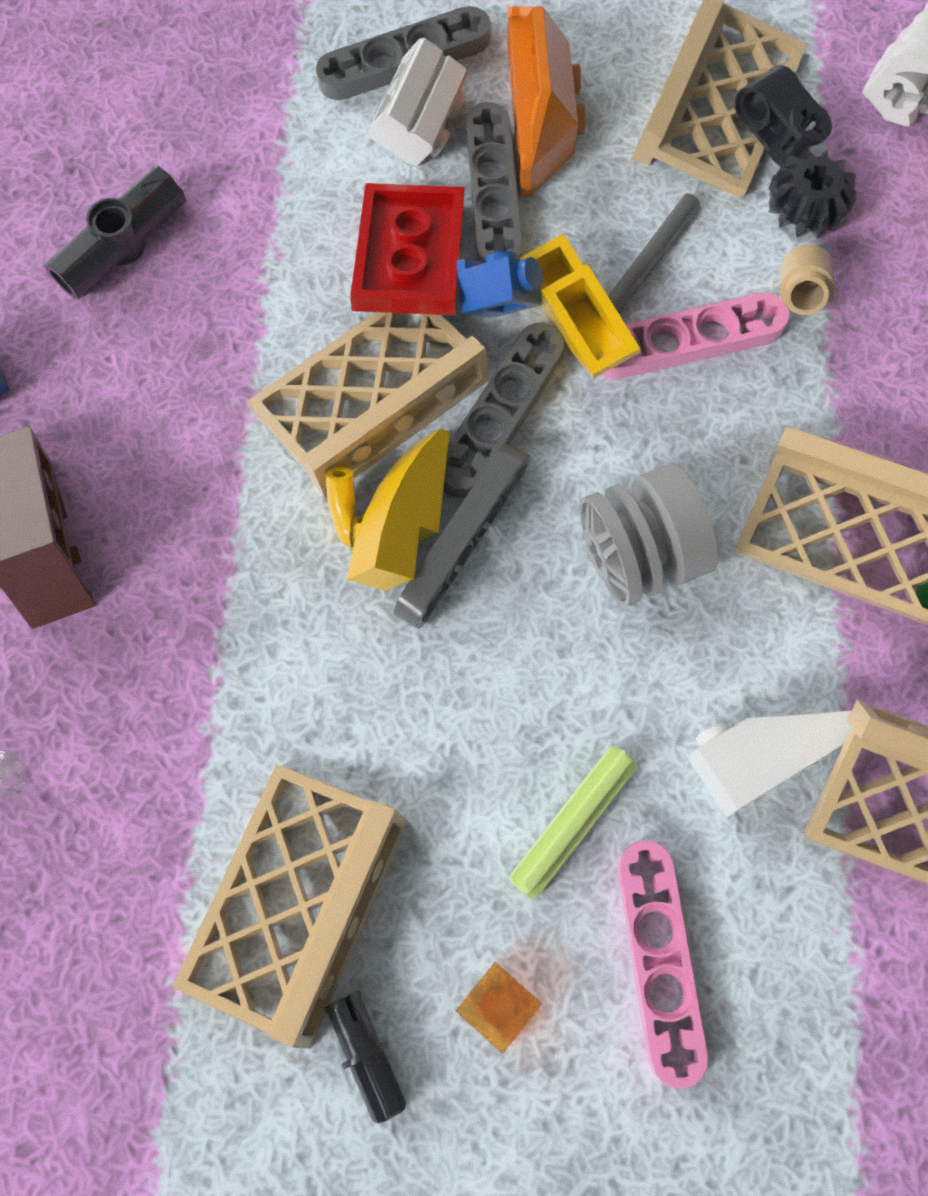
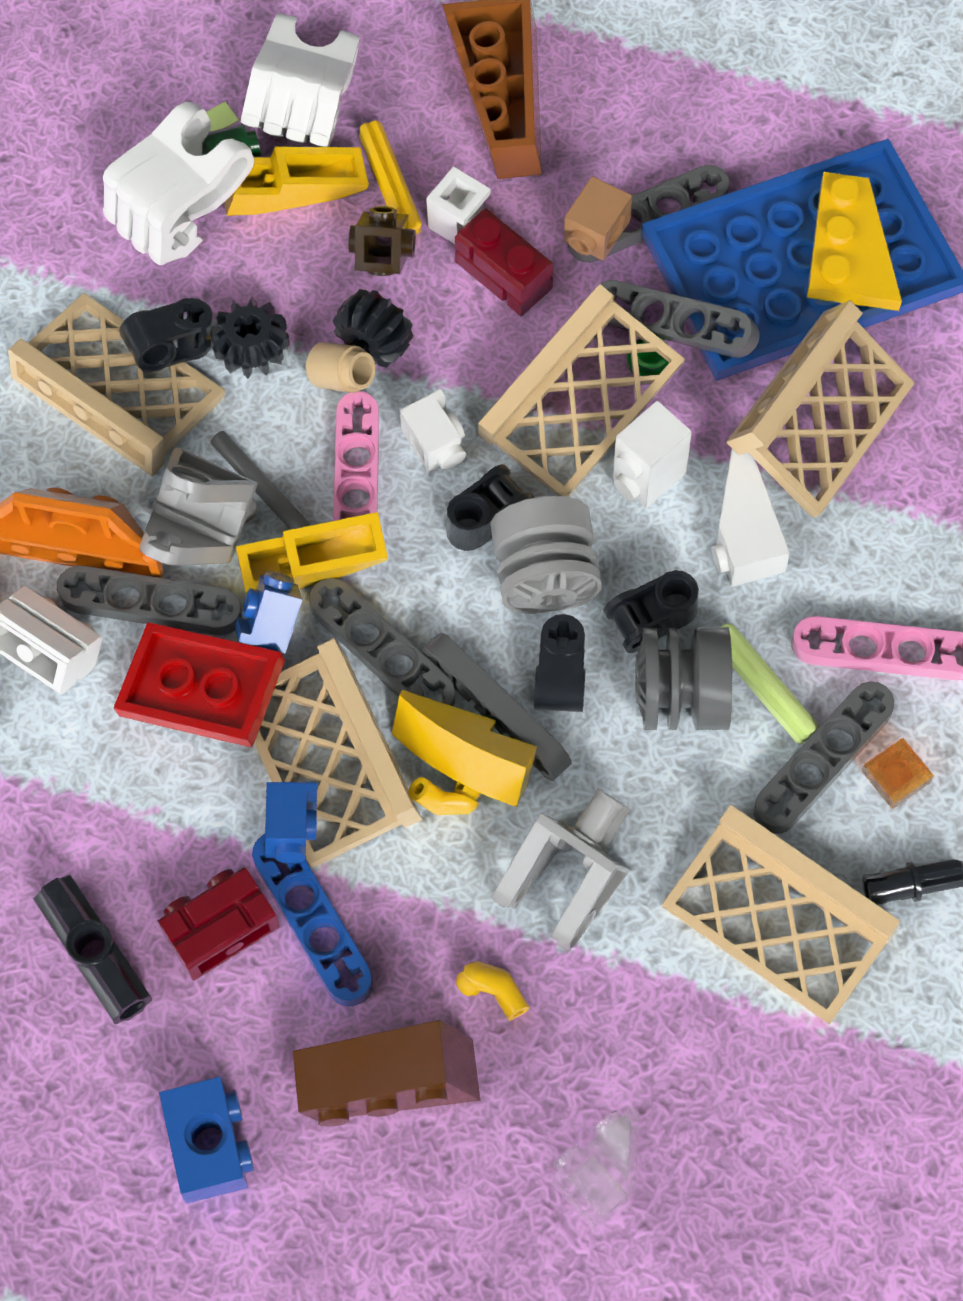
camera: 75 degrees left, 5 degrees down
(155, 609) = (494, 981): none -> yellow arm
(163, 331) = (218, 922): none -> dark red brick
(184, 412) = (308, 920): none -> blue beam
(271, 357) = (290, 820): none -> blue brick
(309, 660) = (590, 837): none -> light grey piece
(496, 919) = (820, 754): none -> dark grey beam
(520, 589) = (561, 670): none -> black piece
(536, 710) = (685, 678): none -> dark grey wheel
(585, 184) = (198, 512): none -> light grey piece
(619, 663) = (648, 608): none -> black piece
(700, 460) = (481, 504): none -> black piece
(766, 391) = (433, 432): none -> white brick
(811, 617) = (650, 455): none -> white brick
(865, 297) = (374, 325): none -> black gear

